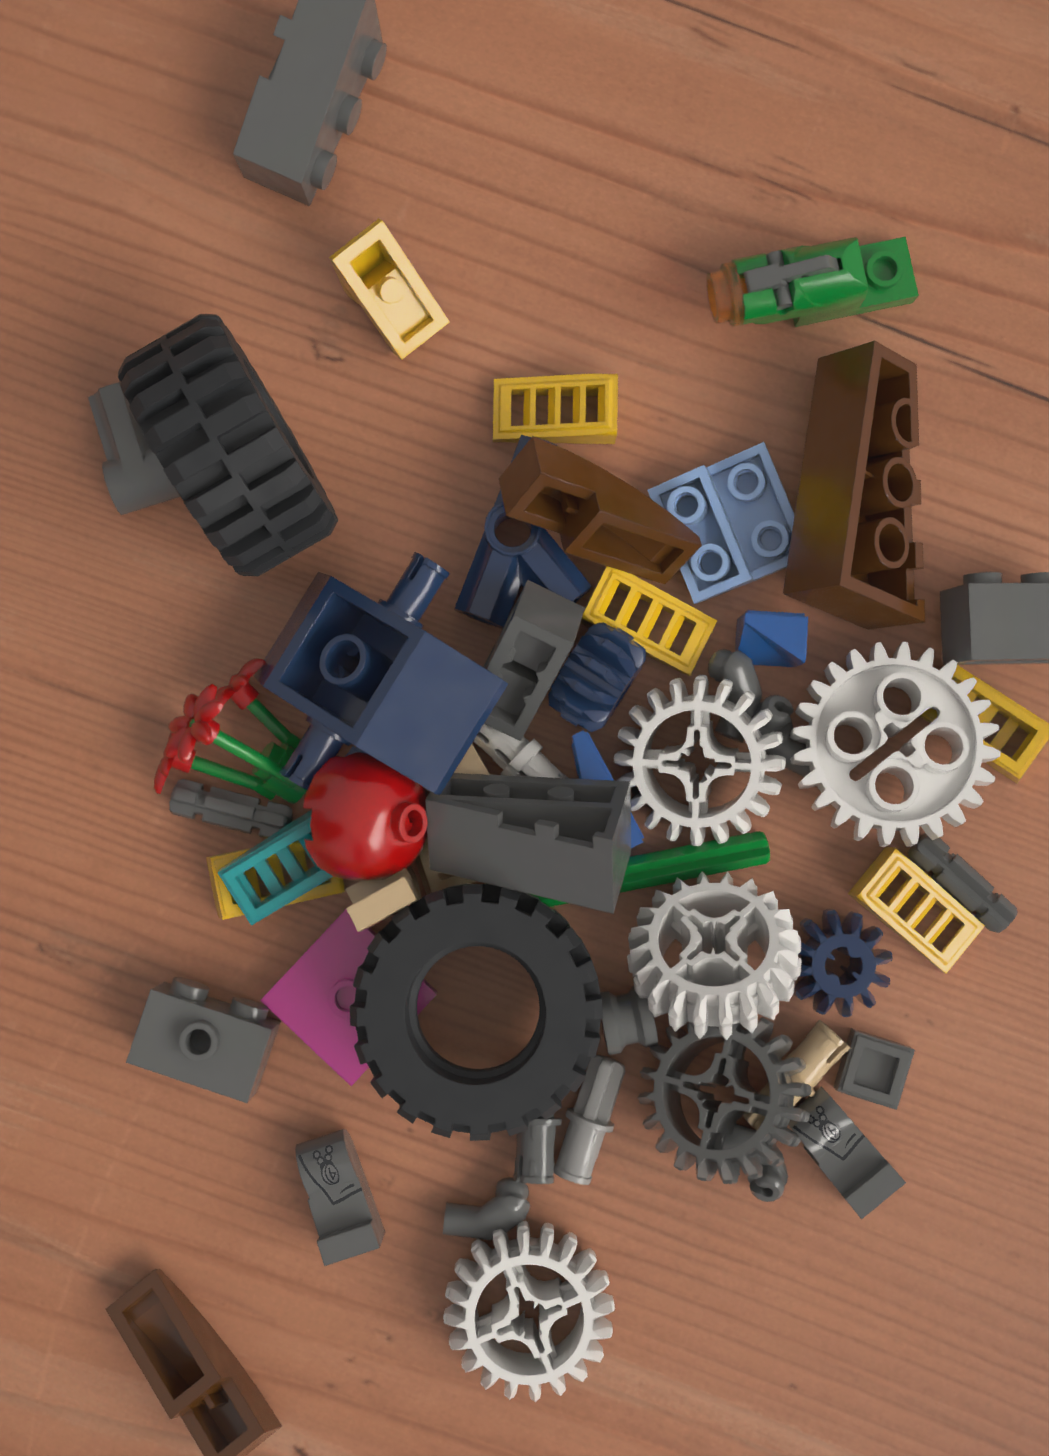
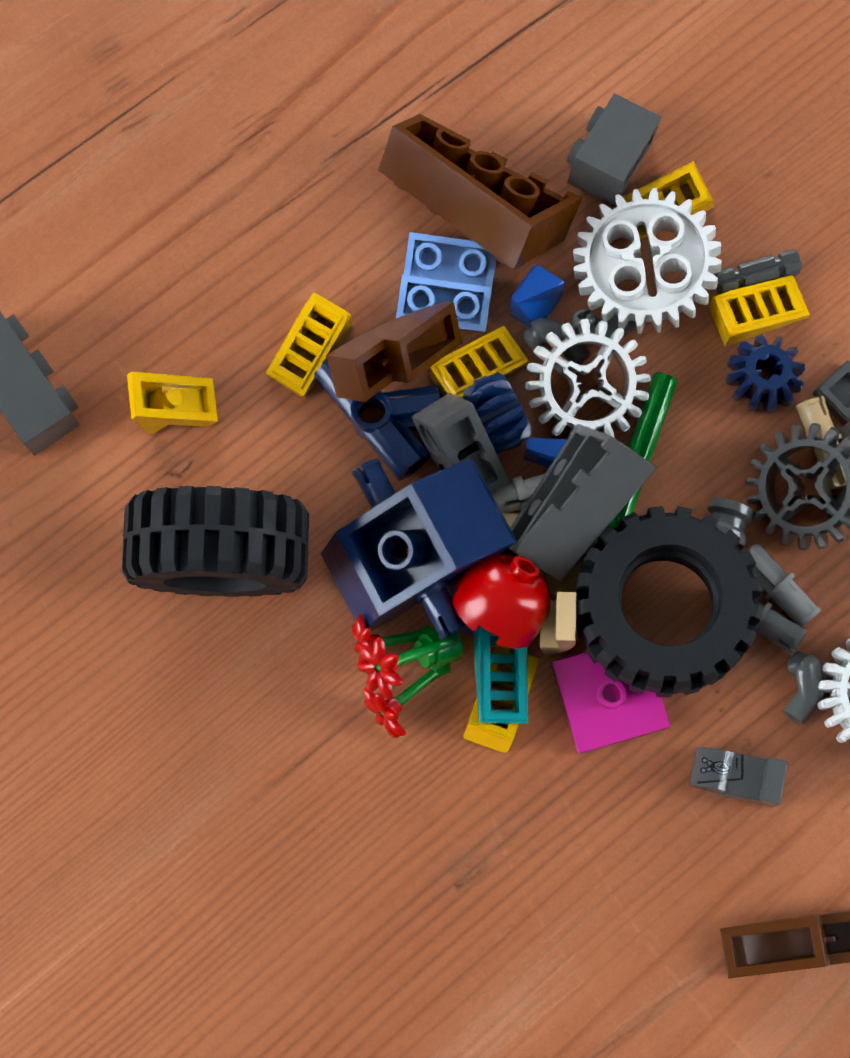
camera: 55 degrees left, 10 degrees down
(131, 468) = (178, 626): dark grey piece -> none
(204, 1039) = (585, 802): dark grey brick -> none
(228, 809) = (441, 701): dark grey axle -> none
(713, 977) = (703, 435): white gear -> none
(812, 283) = (329, 148): green plate -> none

